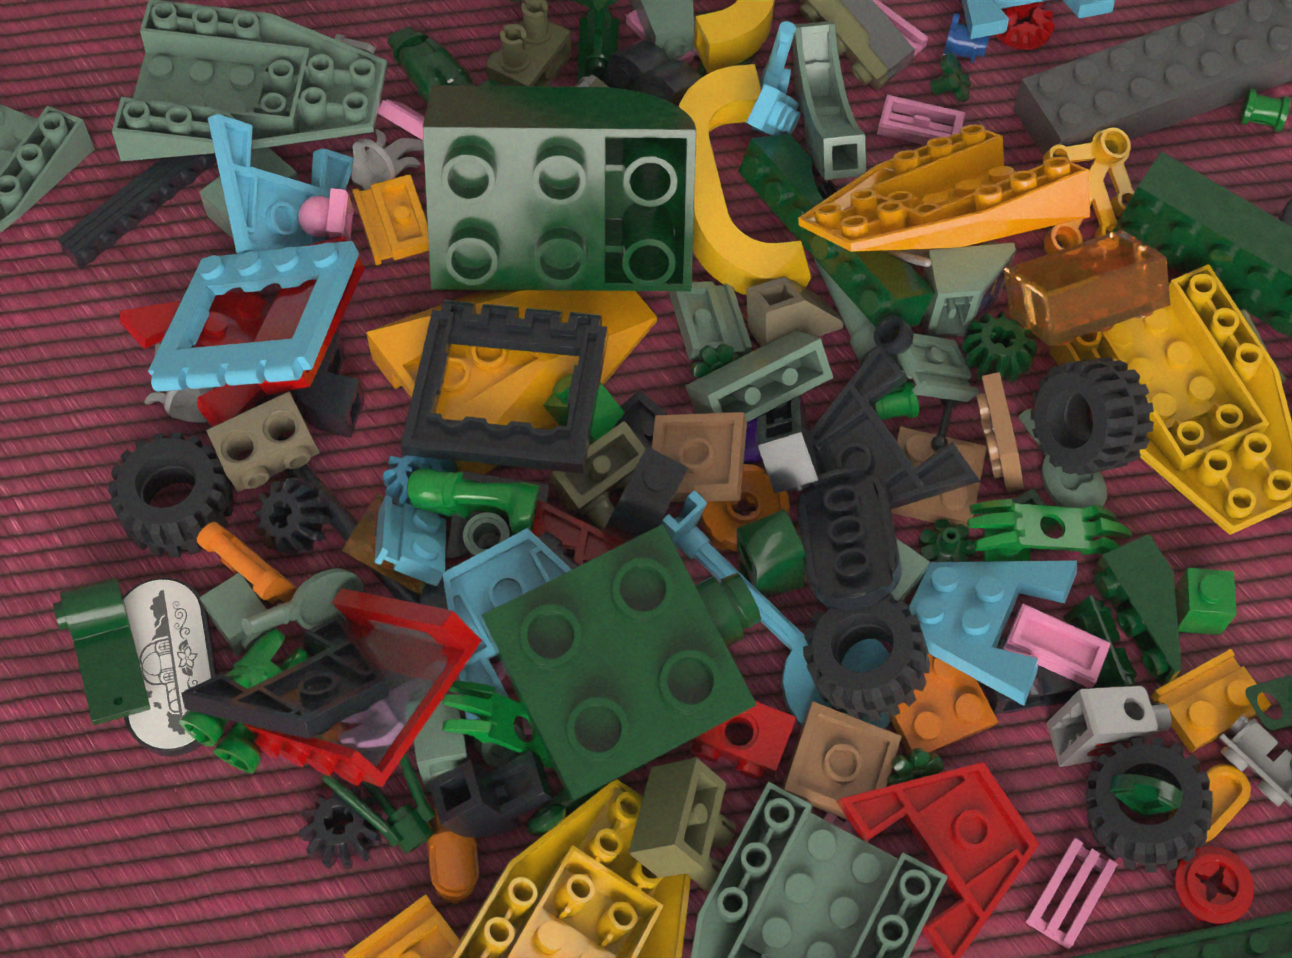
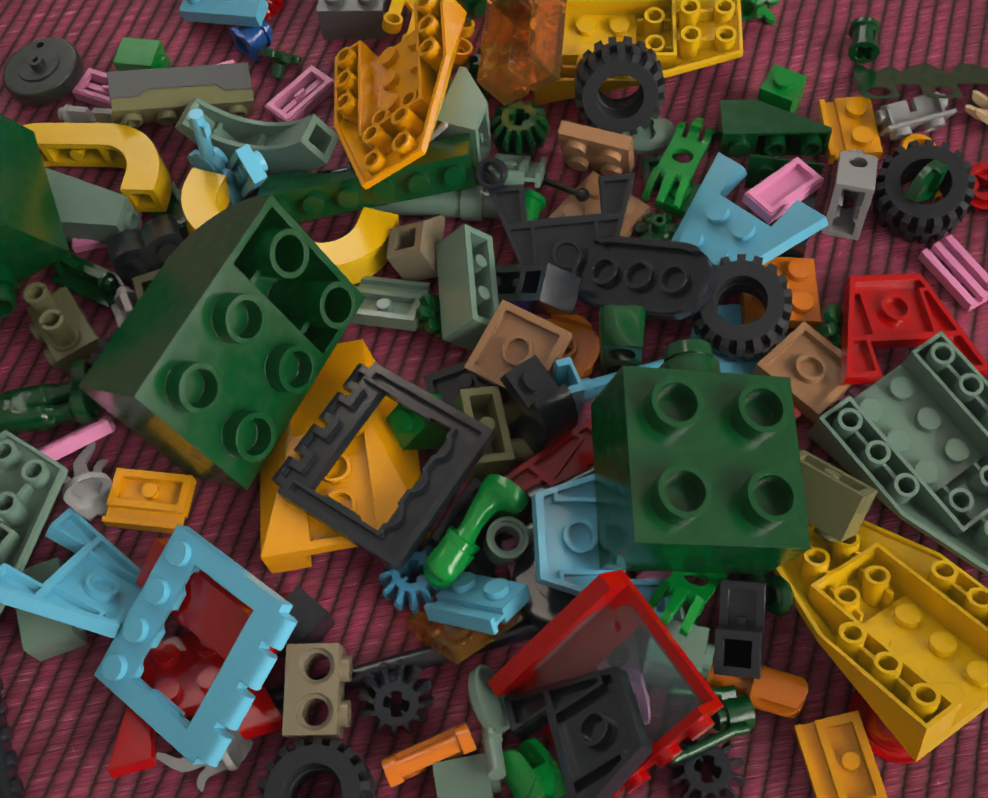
camera: 55 degrees left, 0 degrees up
(327, 216) = (125, 545): bright pink tile -> none

